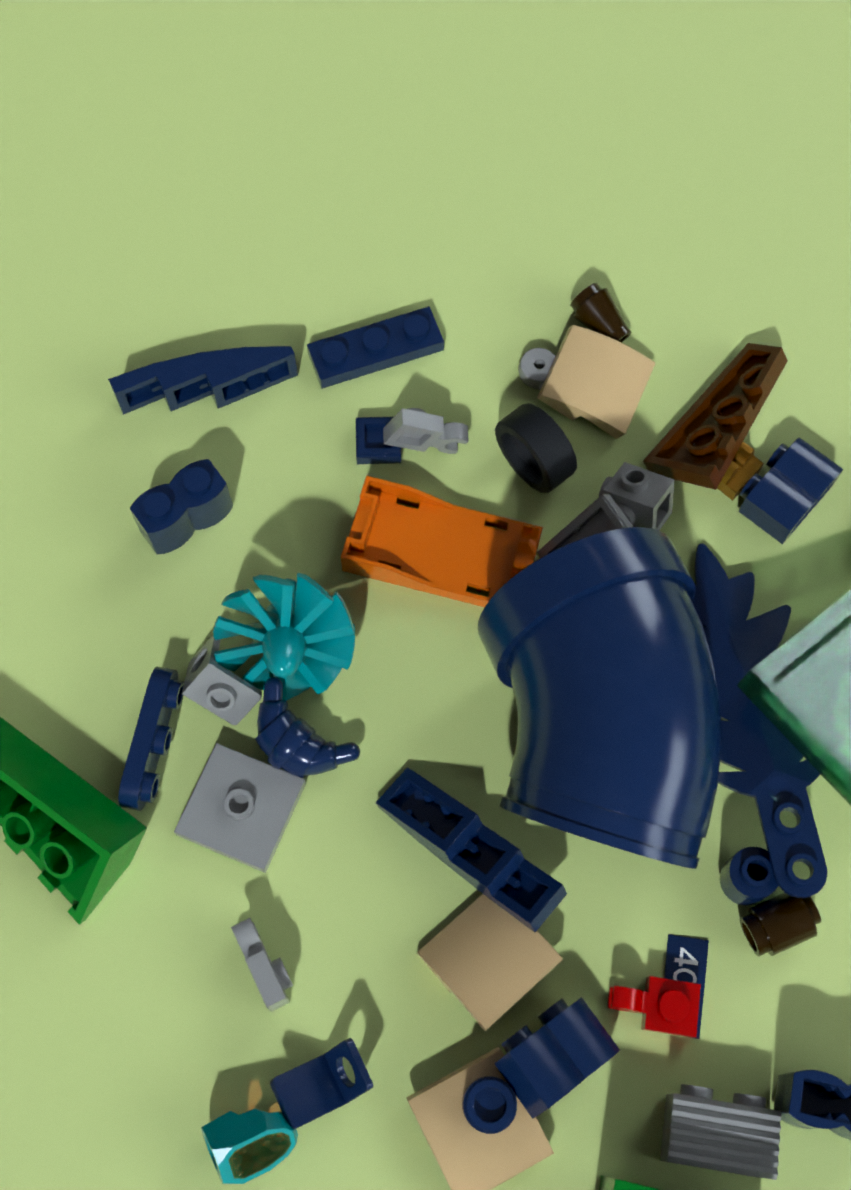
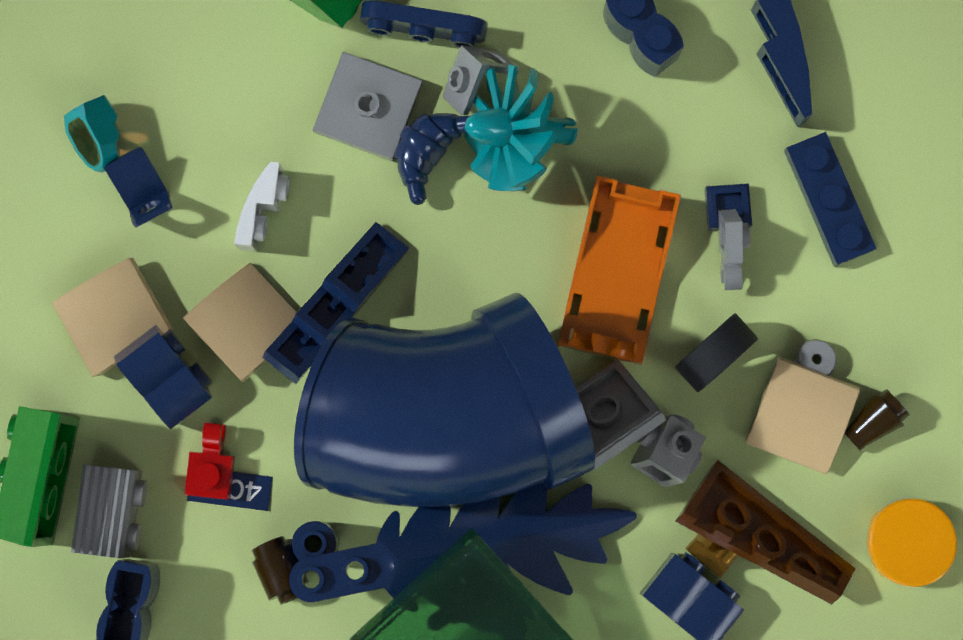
camera: 90 degrees right, 15 degrees up
(268, 975) = (224, 139): light grey plate -> none
(338, 925) = (266, 195): none -> white slope
(489, 1104) = (124, 321): dark blue tile -> none
(720, 293) = (911, 542): none -> light orange tile

